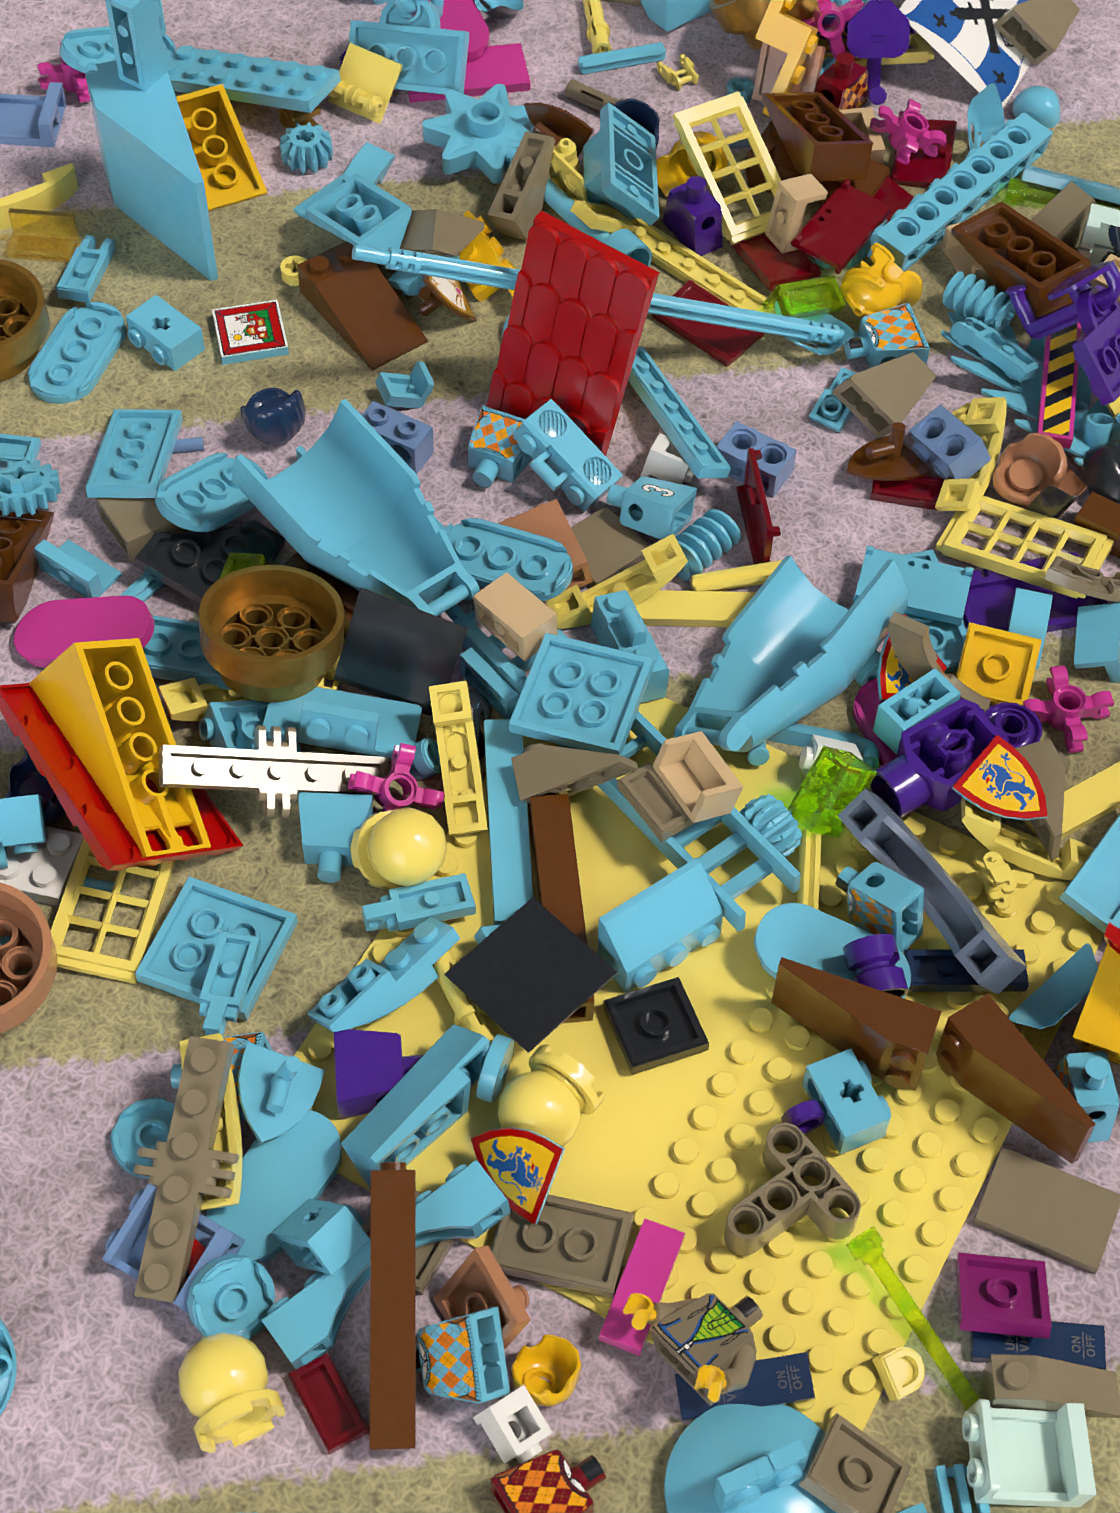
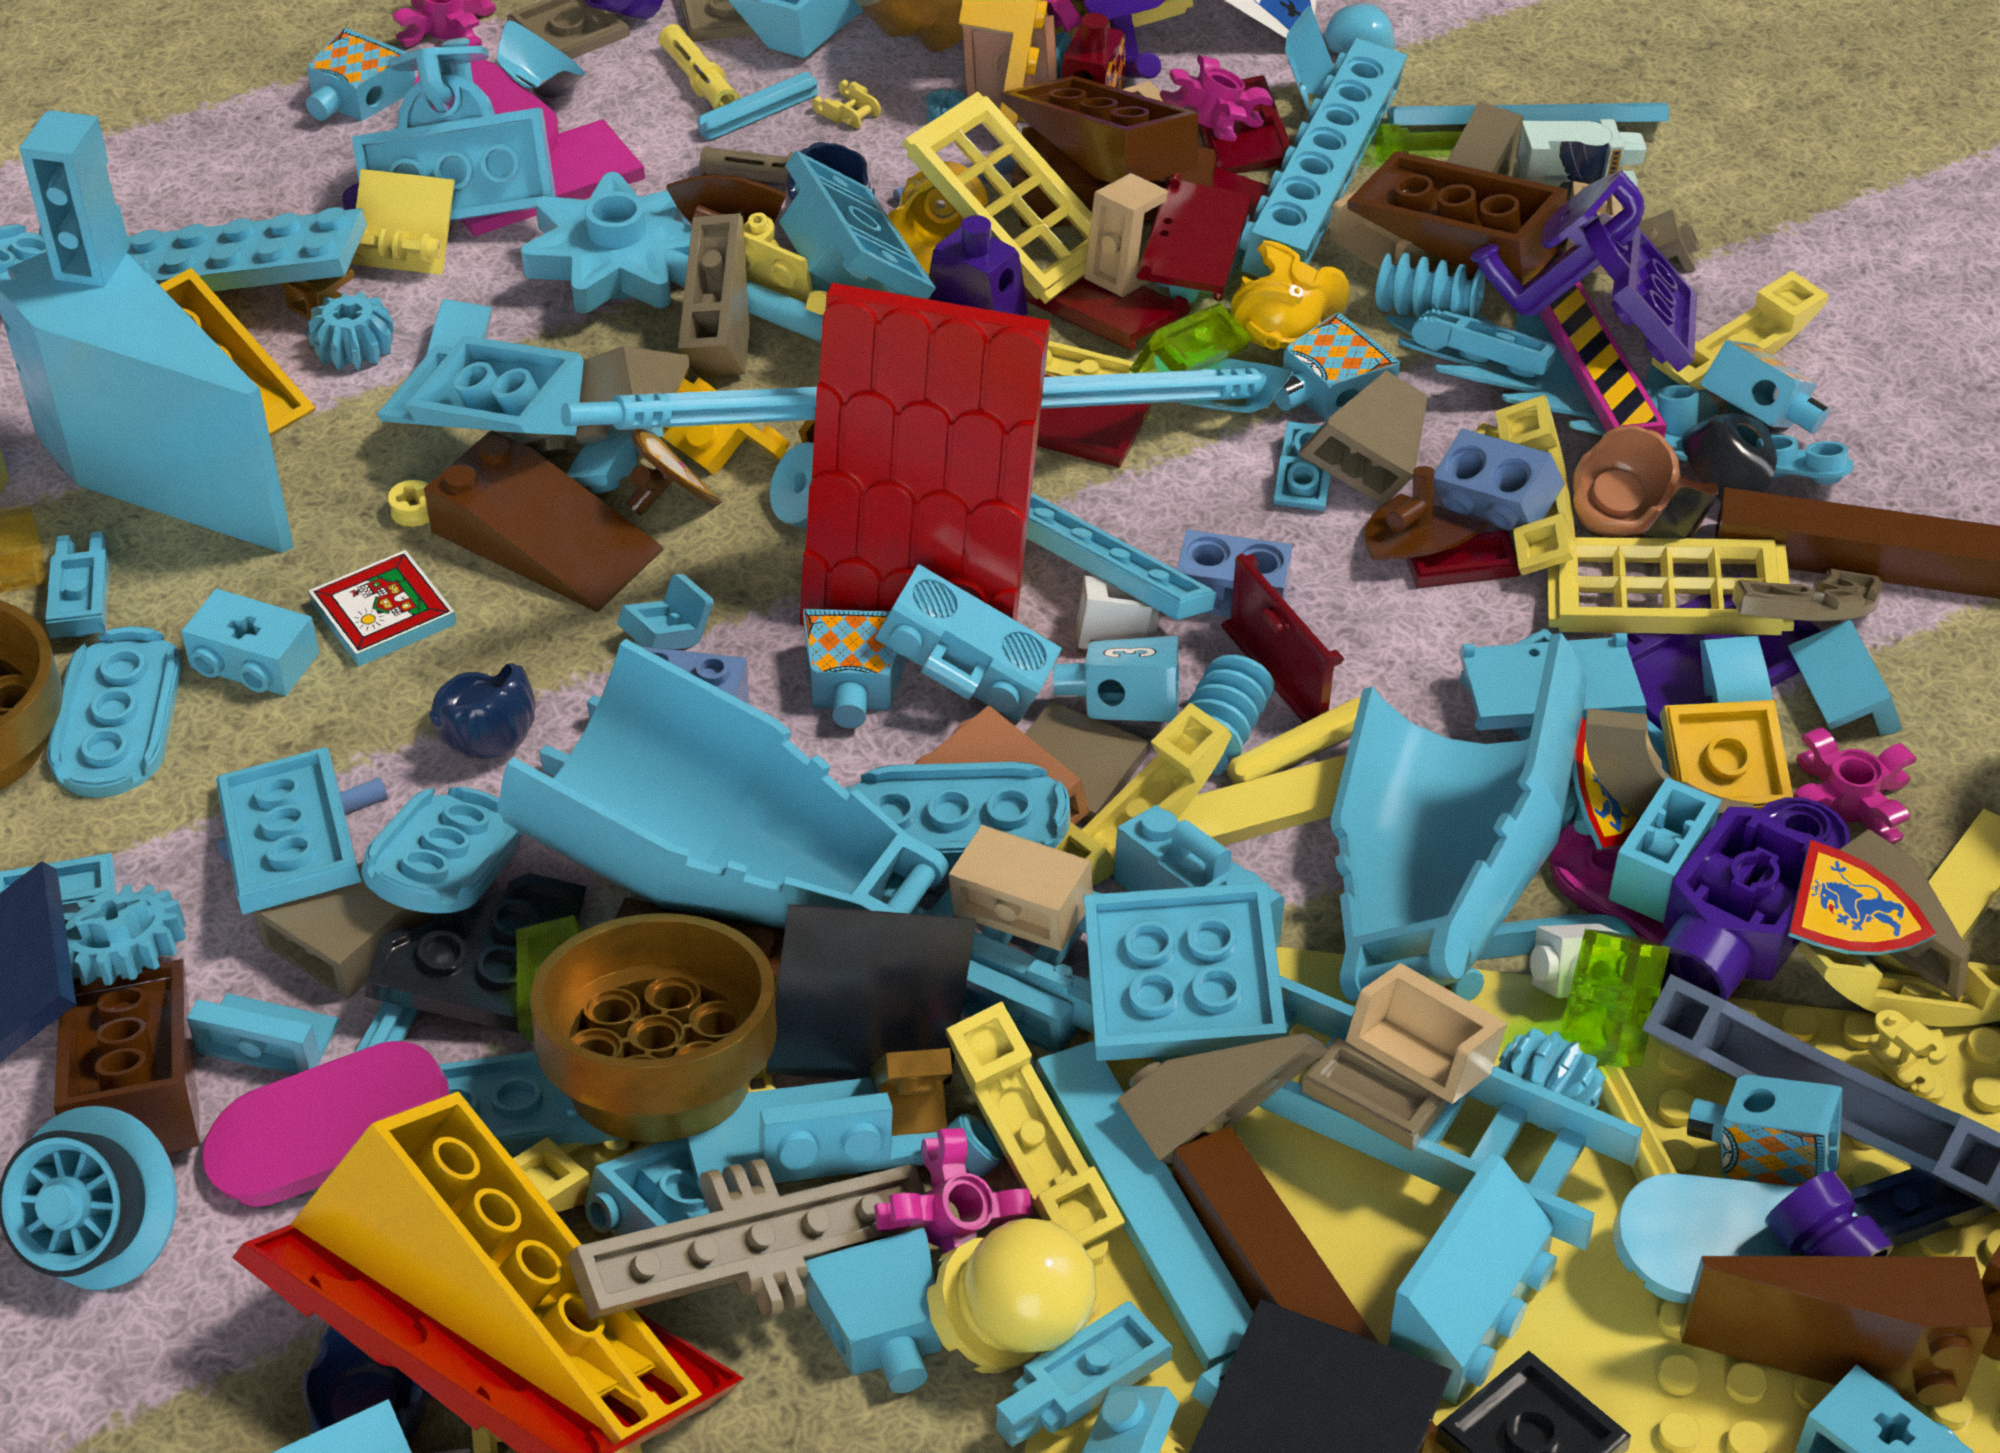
camera: 20 degrees left, 10 degrees down
(402, 717) = (914, 1088): none -> pearl gold slope

